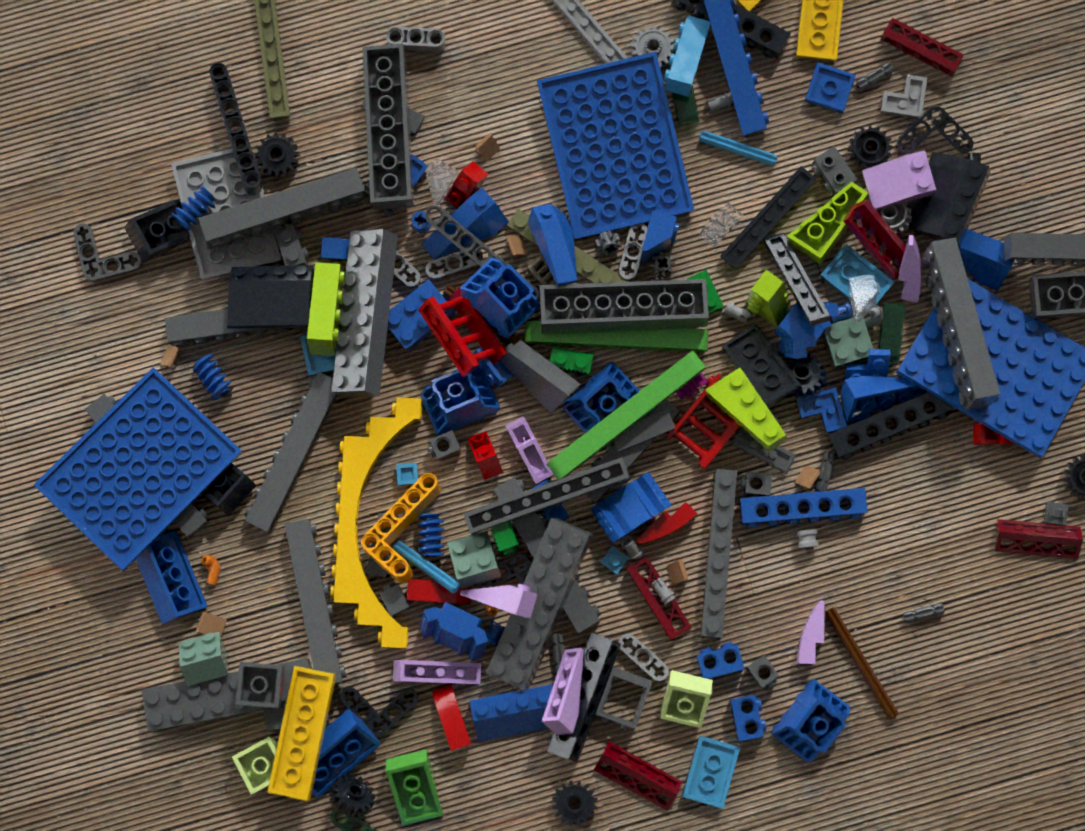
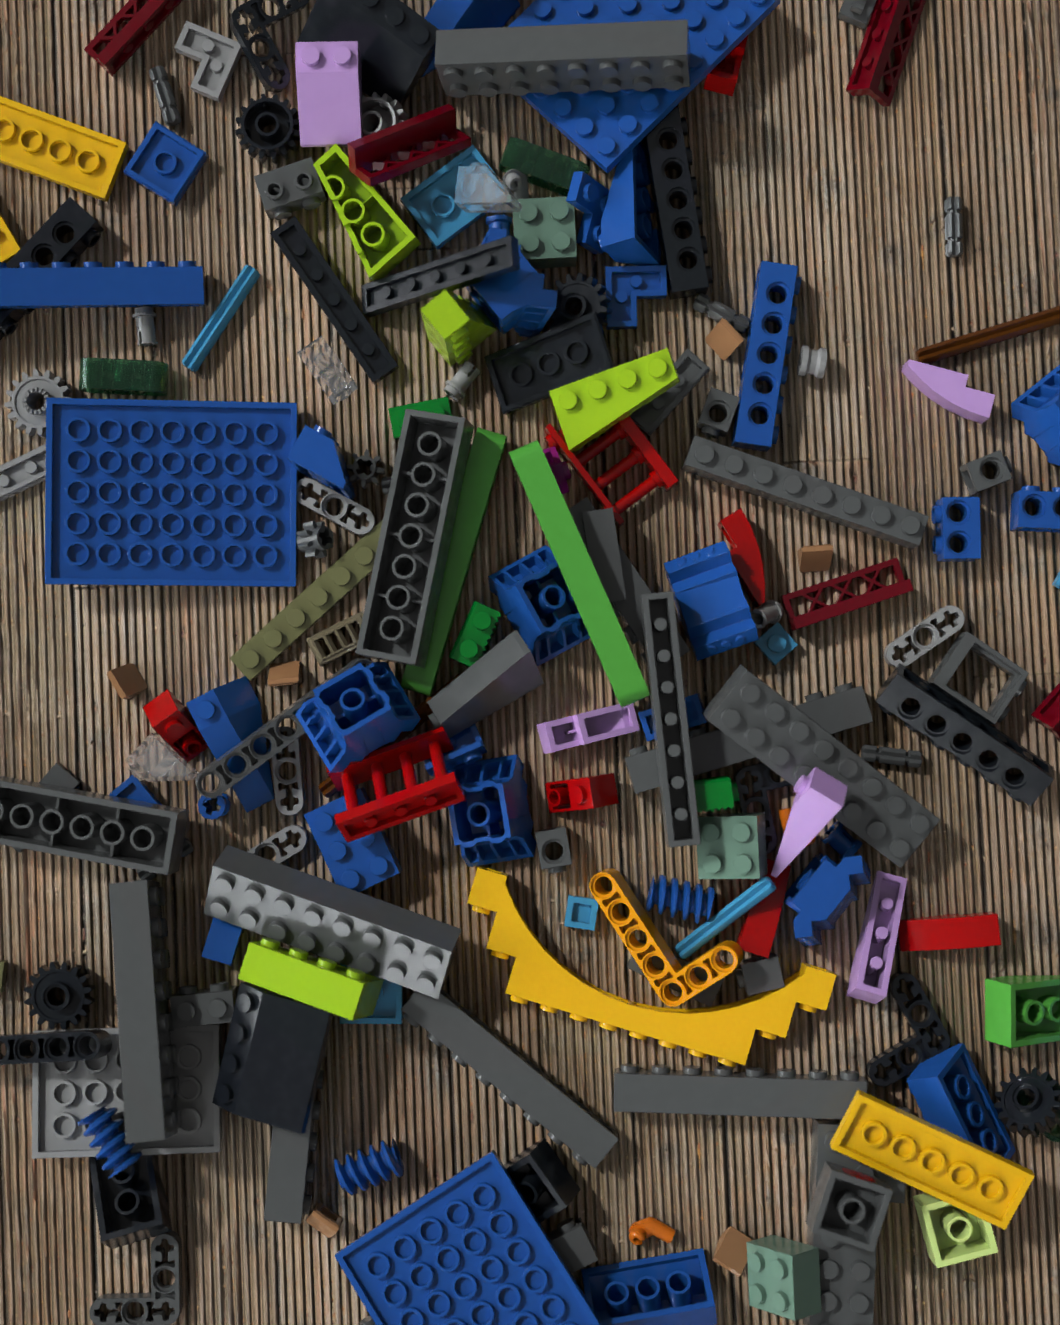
camera: 80 degrees left, 5 degrees up
(510, 713) = (961, 839): blue slope -> none
(555, 241) = (295, 614): blue wedge -> none
(565, 695) = (963, 762): lavender slope -> none
(663, 591) = (839, 585): light grey pin -> none
(686, 699) = (1004, 589): yellowish green brick -> none
(687, 56) = (65, 353): dark azure brick -> none
(911, 271) = (466, 114): lavender slope -> none

